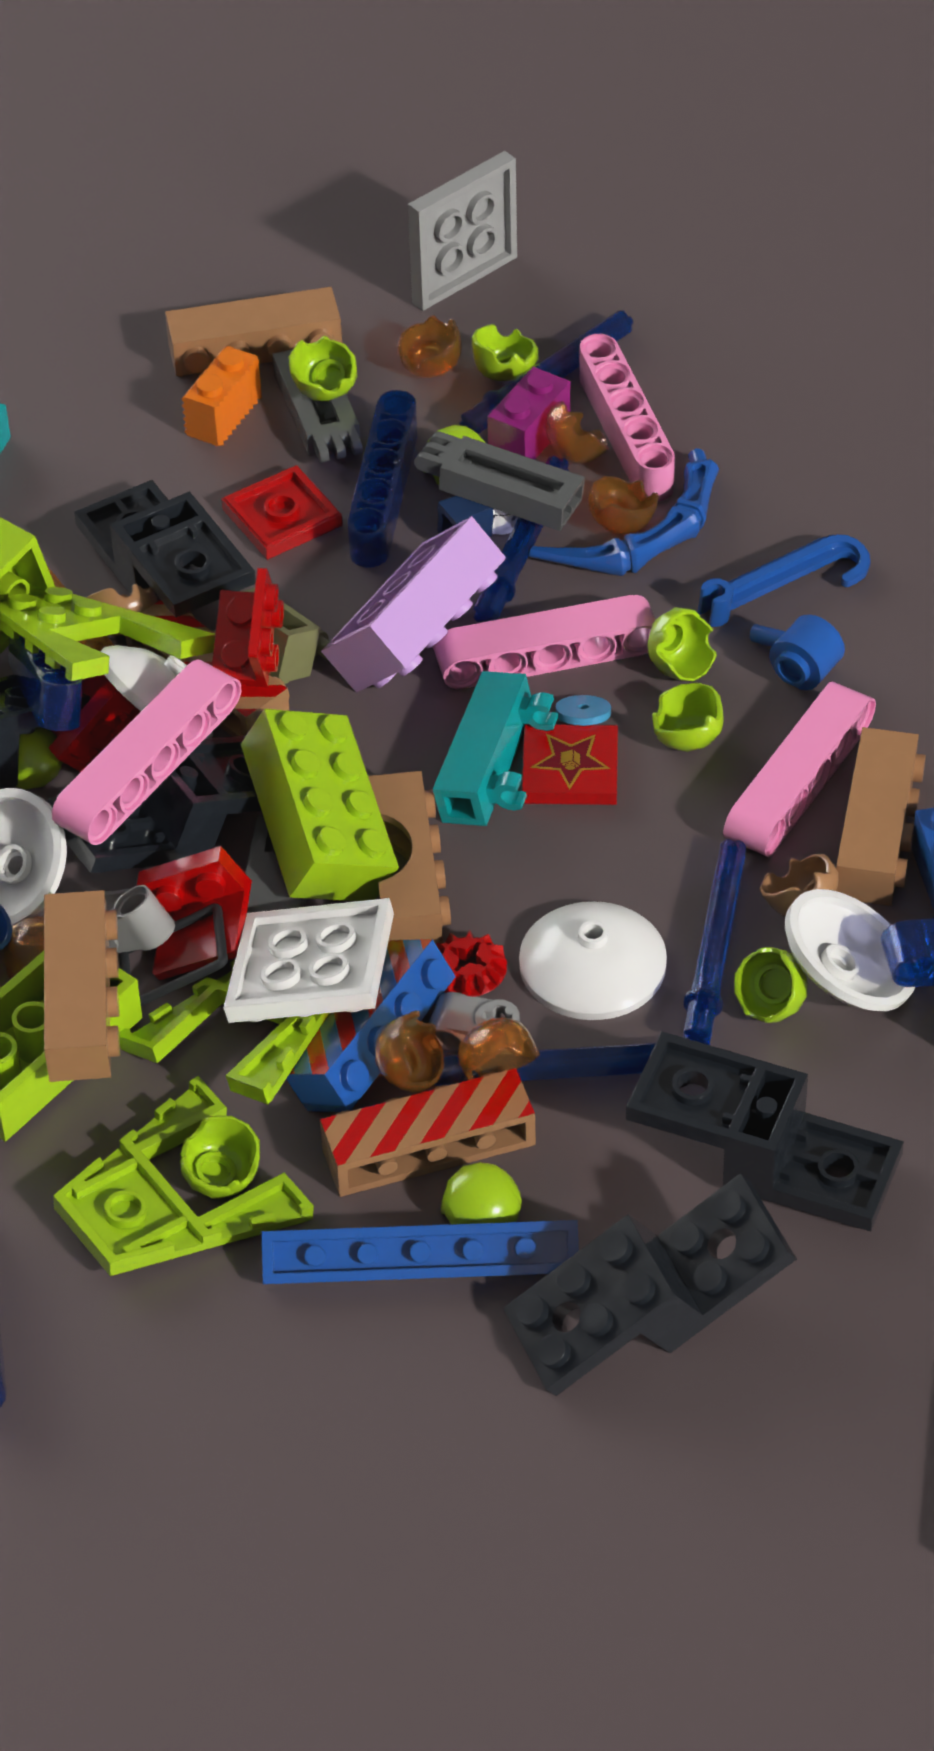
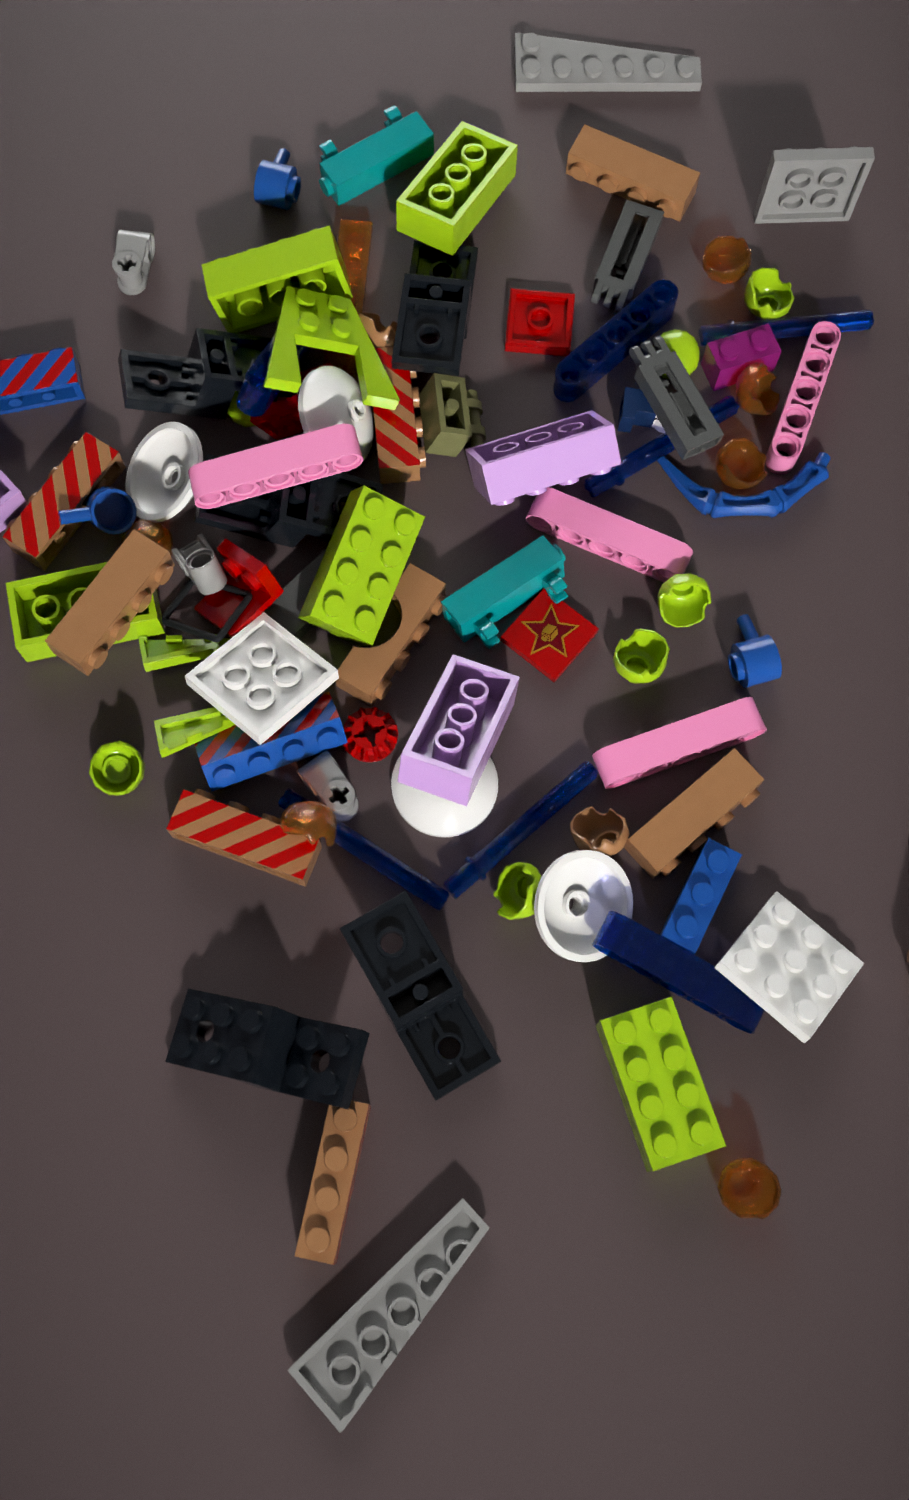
camera: 35 degrees right, 25 degrees up
(82, 435) = (456, 188): none -> lime brick
(104, 275) = (582, 66): none -> light grey wing
(136, 1217) = (46, 766): lime wing -> none
(222, 396) = (570, 211): orange brick -> none
(246, 632) = (414, 416): red bracket -> none
(323, 369) = (636, 235): lime hair -> none
(409, 1053) = (263, 786): clear orange hair -> none
(417, 1251) = (173, 917): blue plate -> none
(481, 1195) = (237, 906): lime hair -> none
(572, 874) = (458, 730): none -> lavender brick
(583, 710) = (588, 591): dark azure wheel -> none
(725, 596) = (799, 585): blue piece -> none
(841, 1361) = (332, 1183): none -> medium nougat brick

